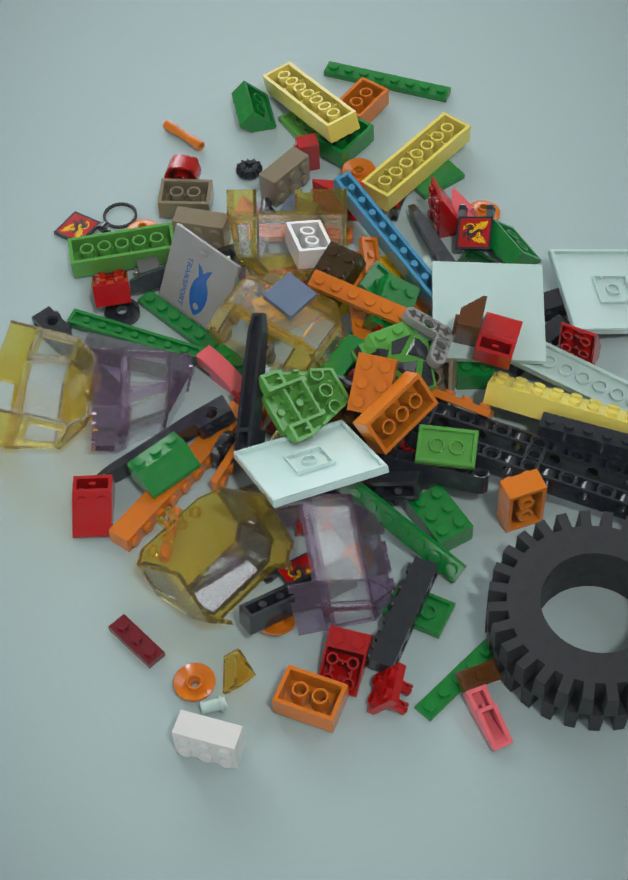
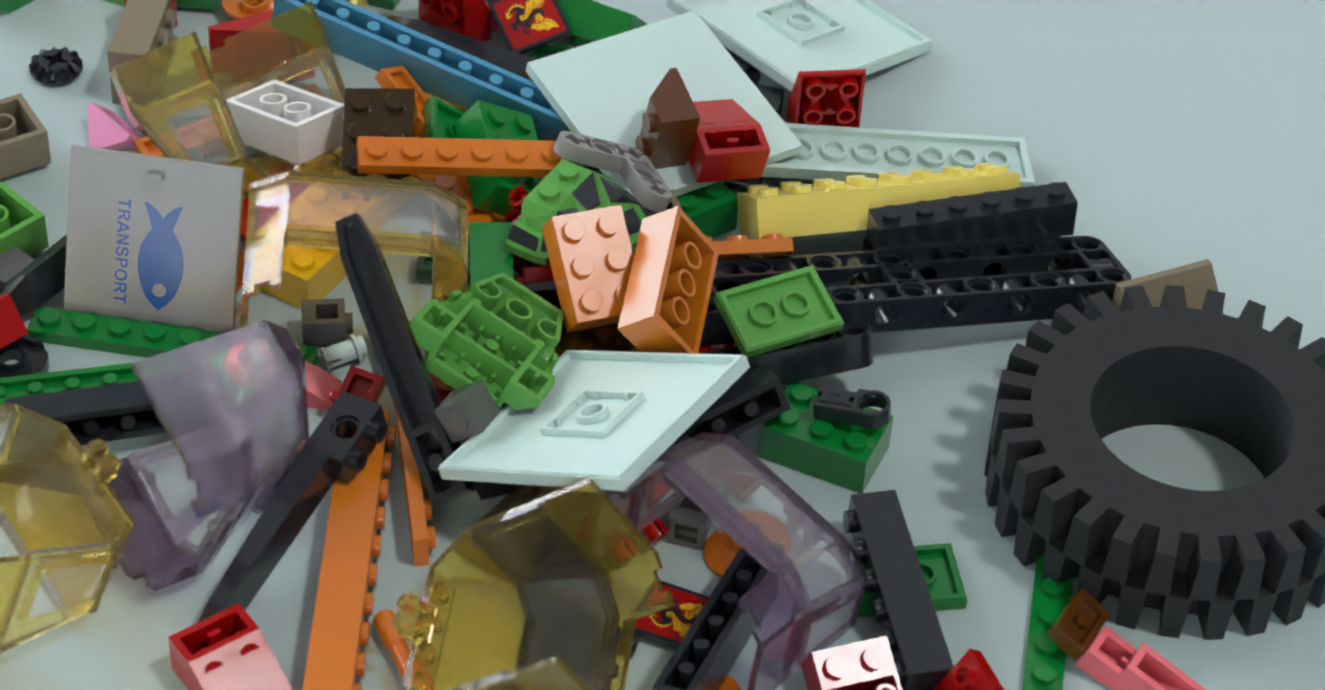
camera: 40 degrees left, 10 degrees down
(163, 465) = (320, 548): green slope -> none
(207, 225) = (42, 169): dark tan brick -> none
(222, 447) = (395, 483): black tile -> none
(266, 430) = (467, 411): none -> dark grey brick
(289, 295) = (368, 178): sand blue tile -> none
(407, 531) = (826, 473): green plate -> none
(448, 511) = (847, 407): none -> black piece
(521, 500) = (936, 347): orange brick -> none

